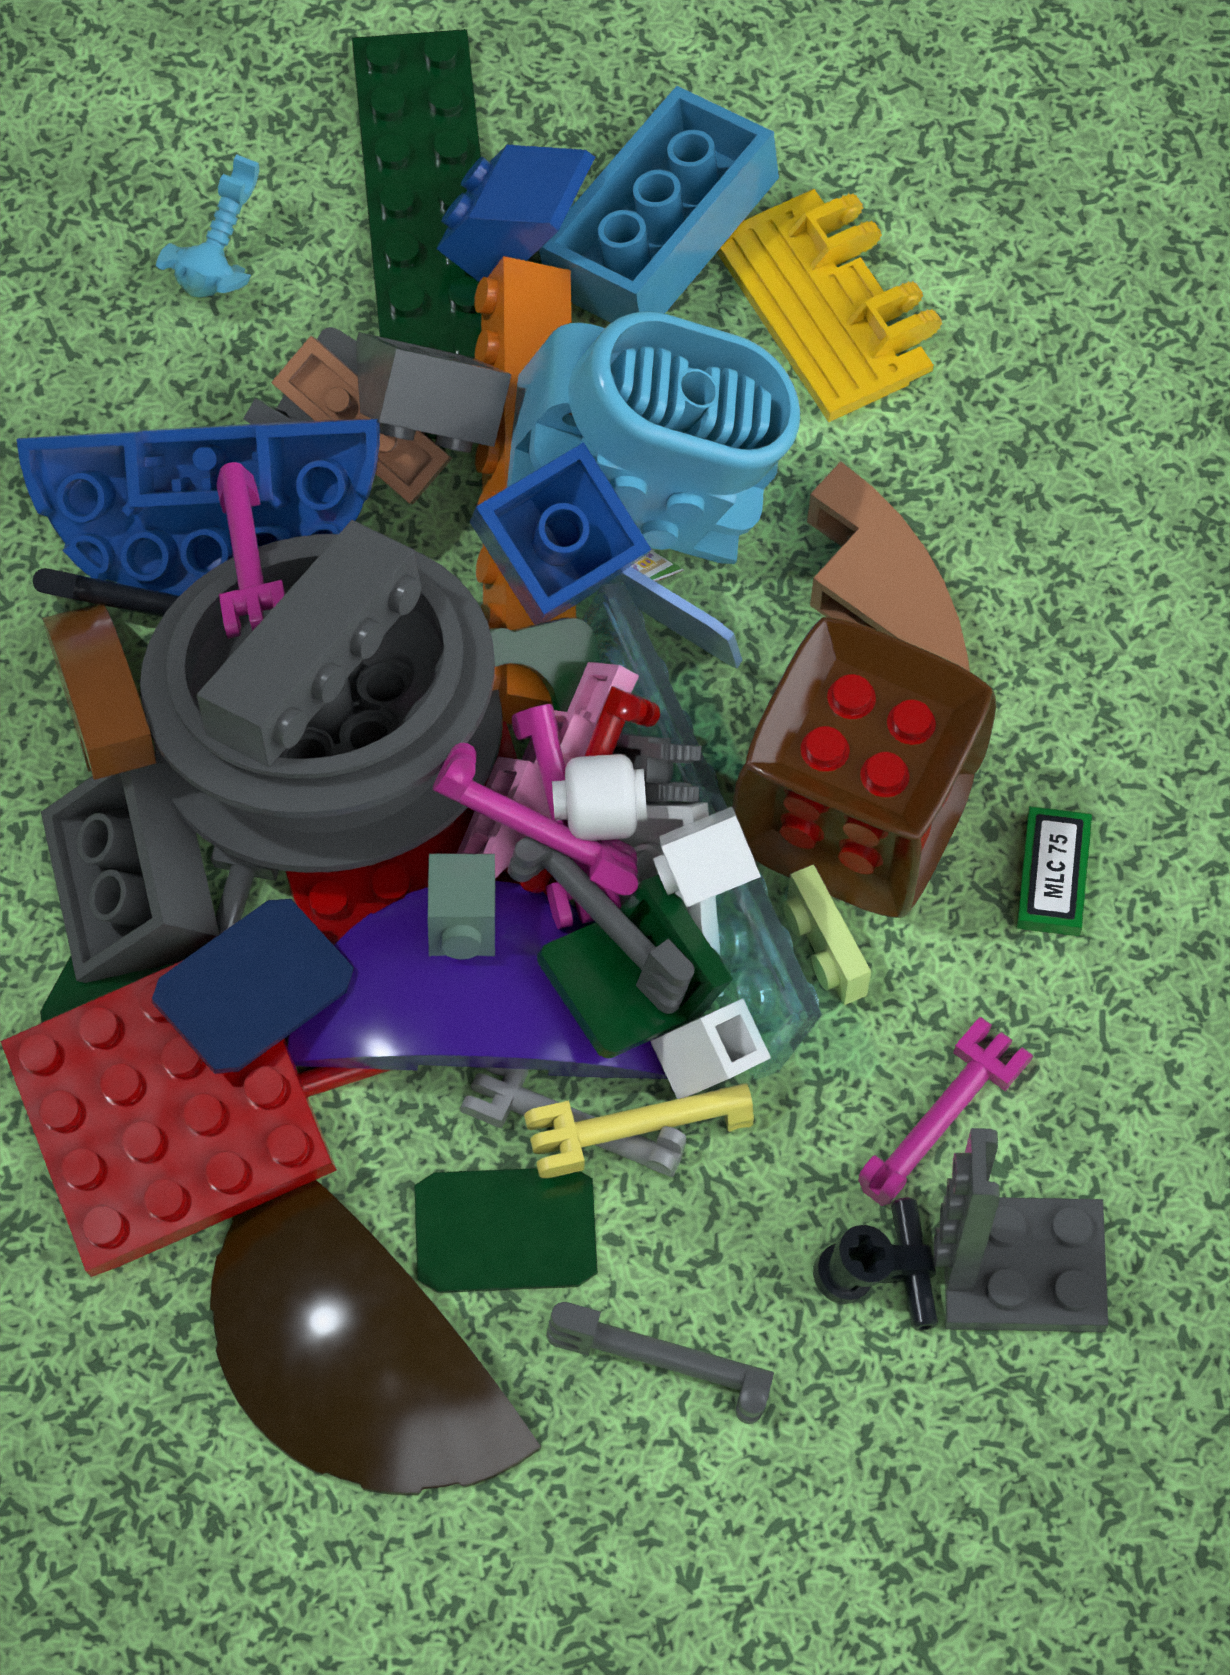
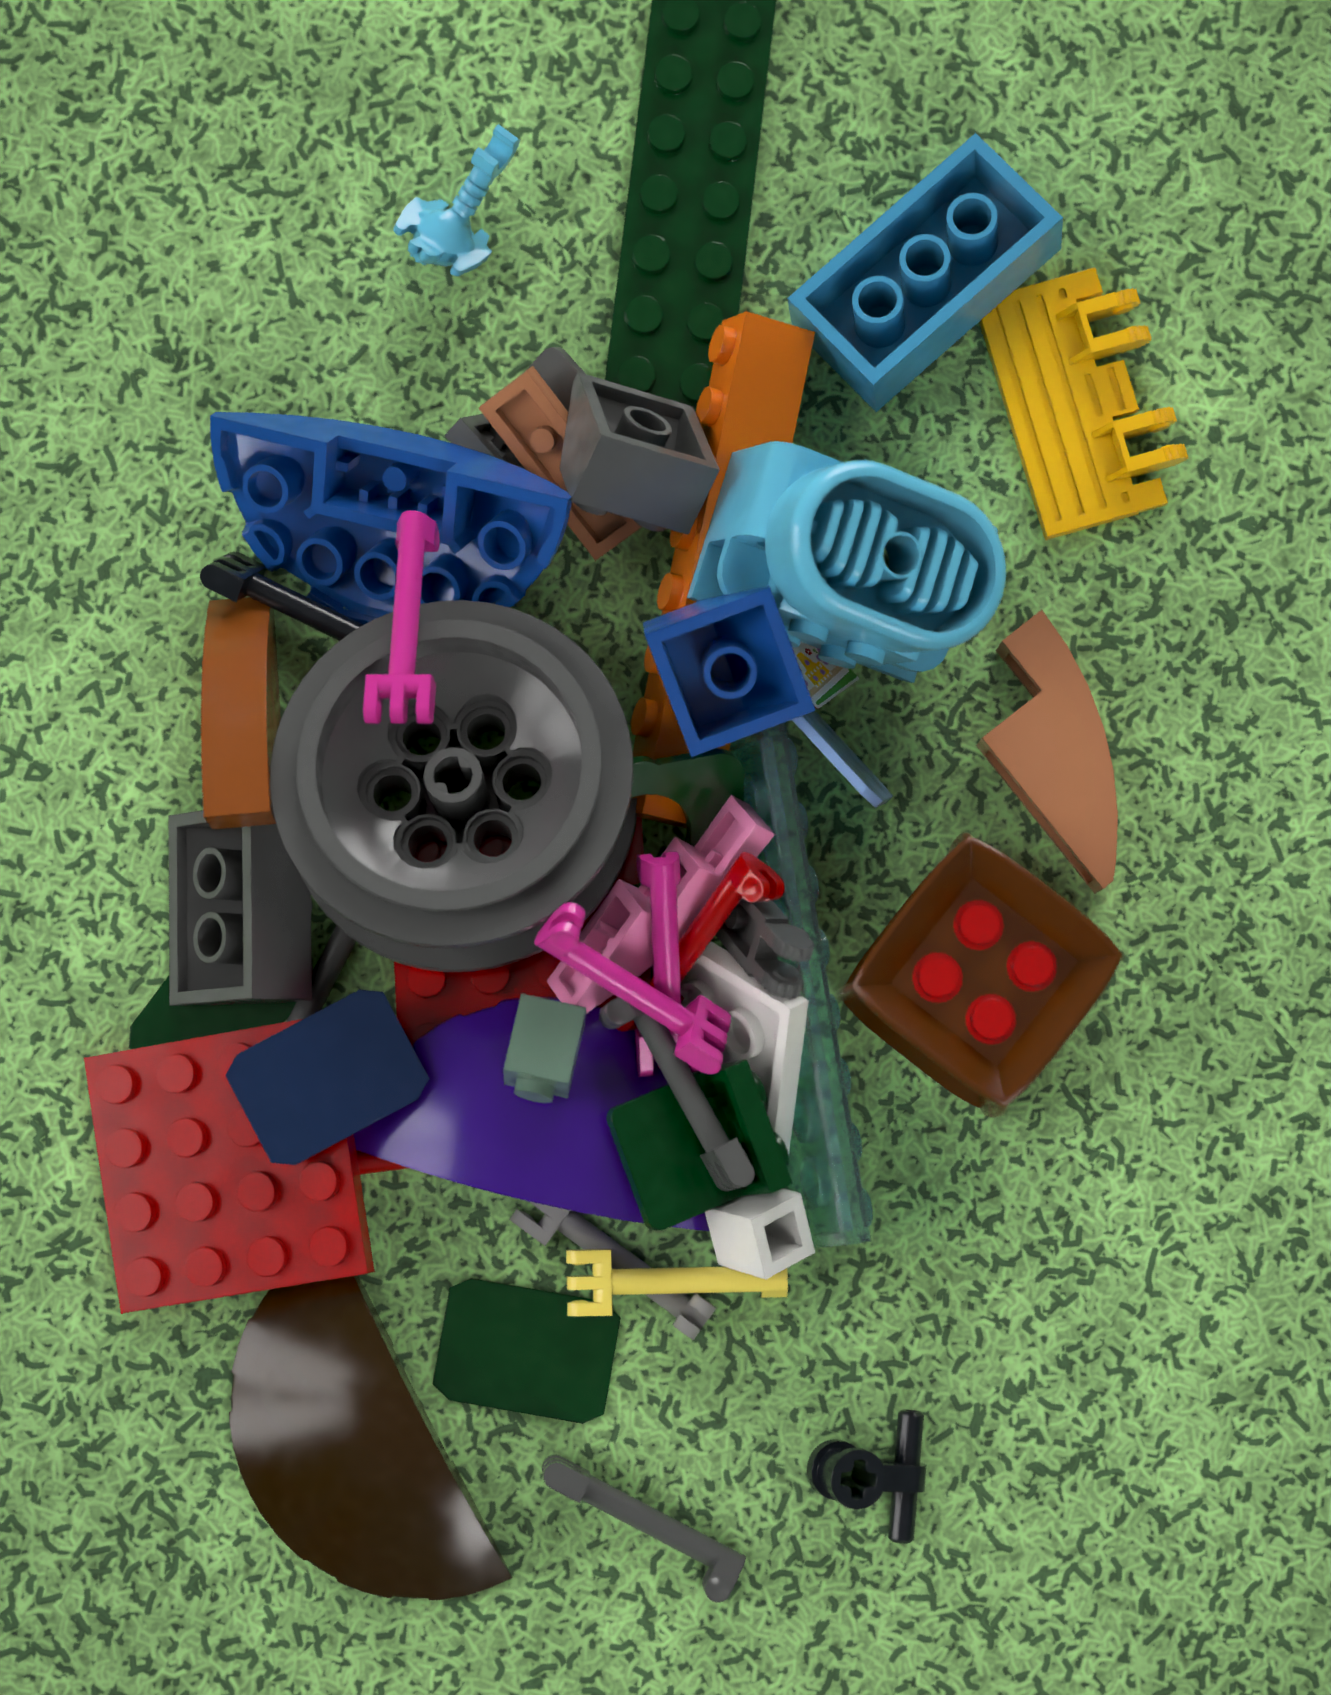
camera: 15 degrees right, 20 degrees up
(310, 643) = (444, 762): dark grey brick -> none
(511, 205) = (772, 245): blue slope -> none
(600, 797) = (702, 974): white head -> none
(706, 858) = (792, 1068): white brick -> none
(837, 957) = (907, 1151): yellowish green plate -> none
(886, 1179) = (1024, 1283): dark pink hinge -> none
(1018, 1258) = (1010, 1498): dark grey bracket -> none
(1054, 871) = (1146, 1094): tile -> none

